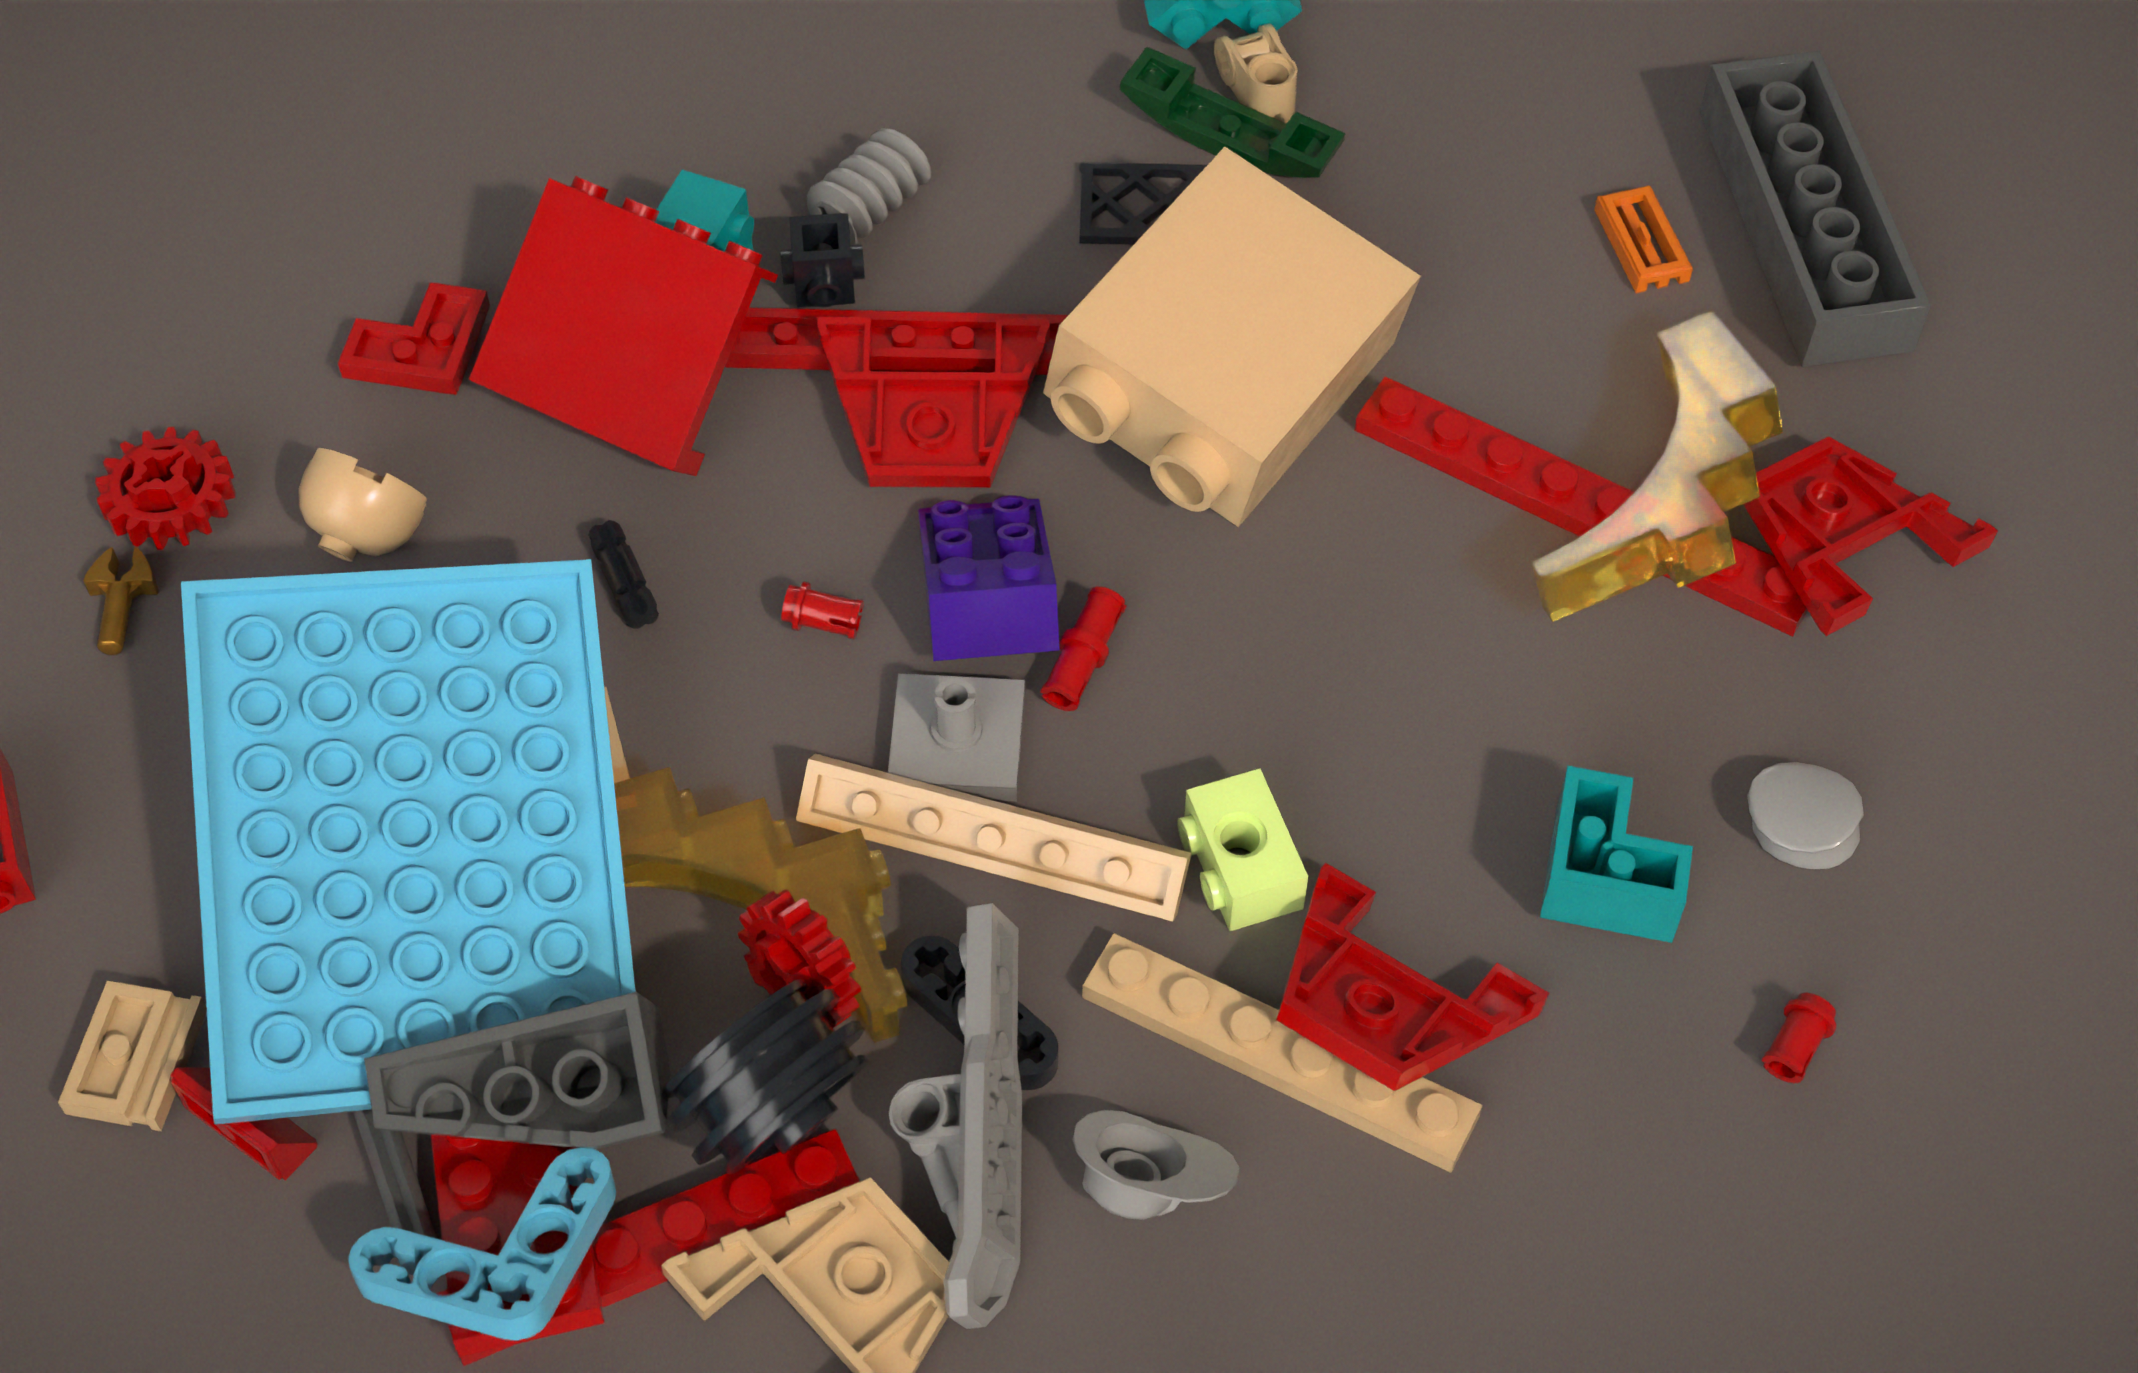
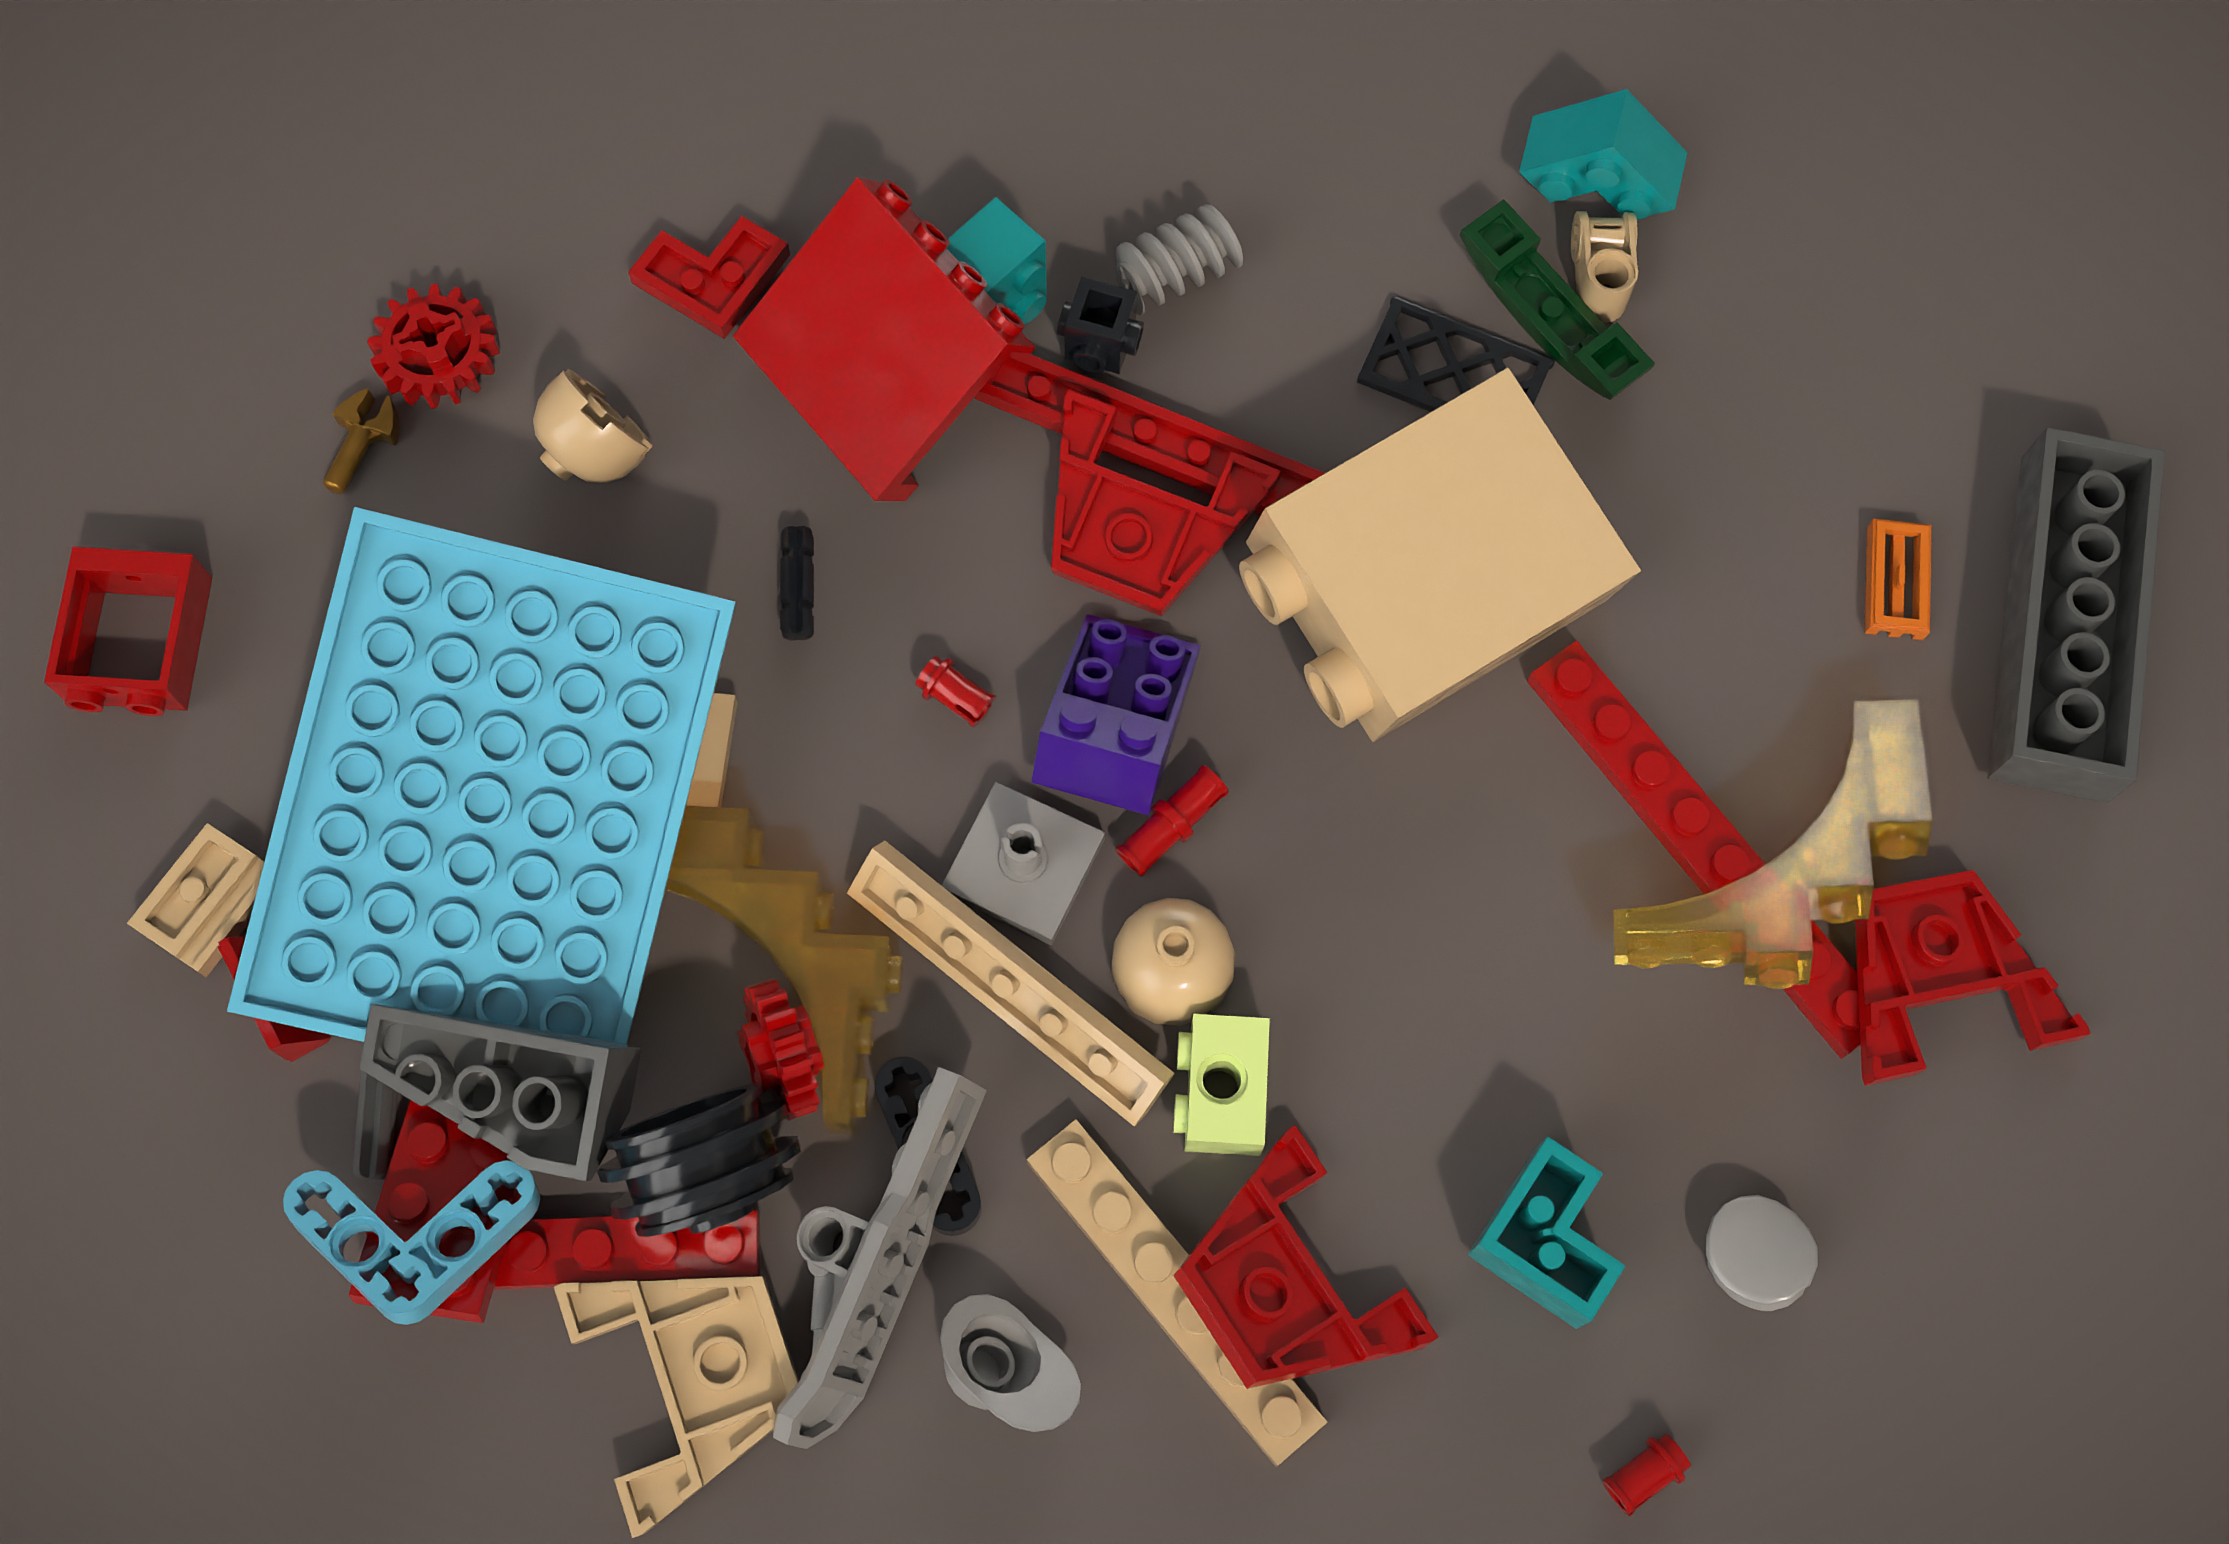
camera: 20 degrees right, 15 degrees up
(1140, 765) = (1173, 961): none -> tan cylinder

